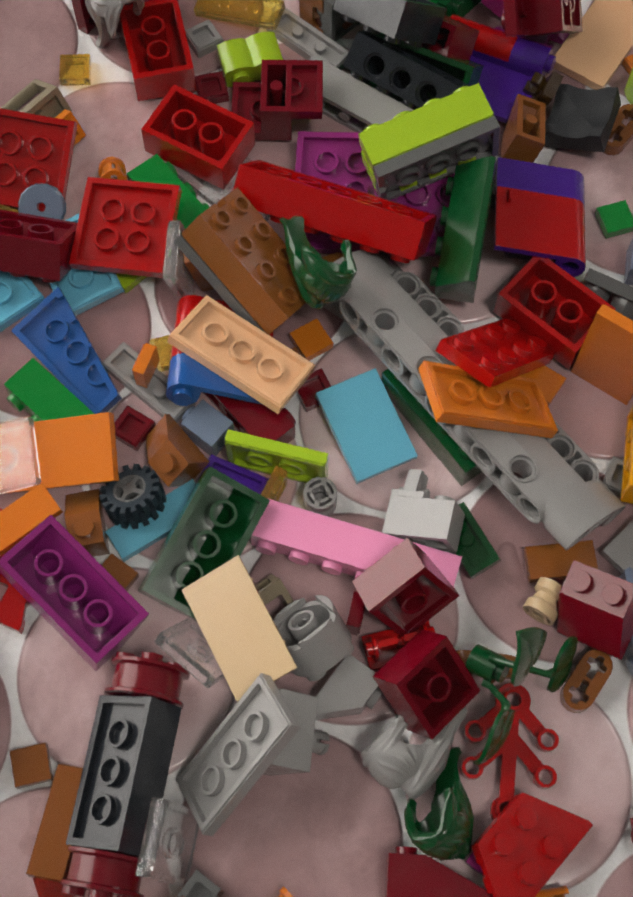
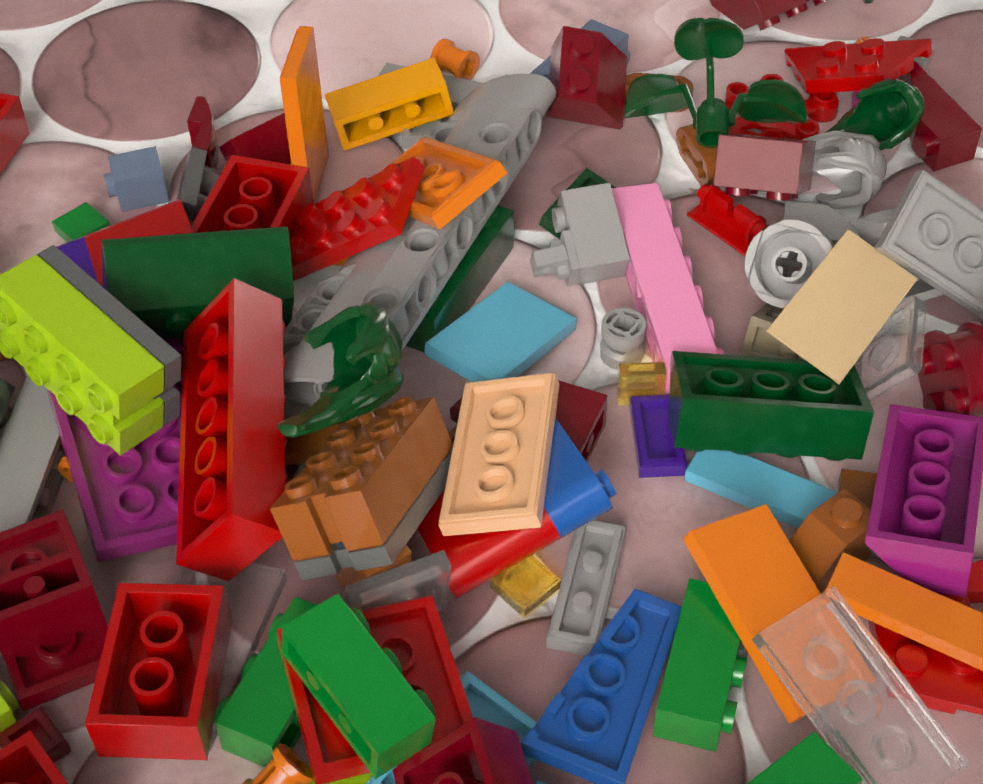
camera: 115 degrees left, 20 degrees down
(116, 203) = (358, 684): none -> green brick
(133, 428) = (662, 572): dark red tile -> none
(133, 497) = (760, 486): black wheel -> none
(145, 365) = (575, 569): orange tile -> none
(173, 453) = (672, 494): dark orange slope -> none
(206, 427) = (621, 466): sand blue brick -> none
(264, 454) = (612, 375): lime tile -> none
(355, 614) = (727, 261): dark red tile -> none
(404, 588) = (686, 202): dark red slope -> none
(544, 602) = (601, 133): tan wheel -> none
(555, 562) = (556, 150): dark orange tile -> none

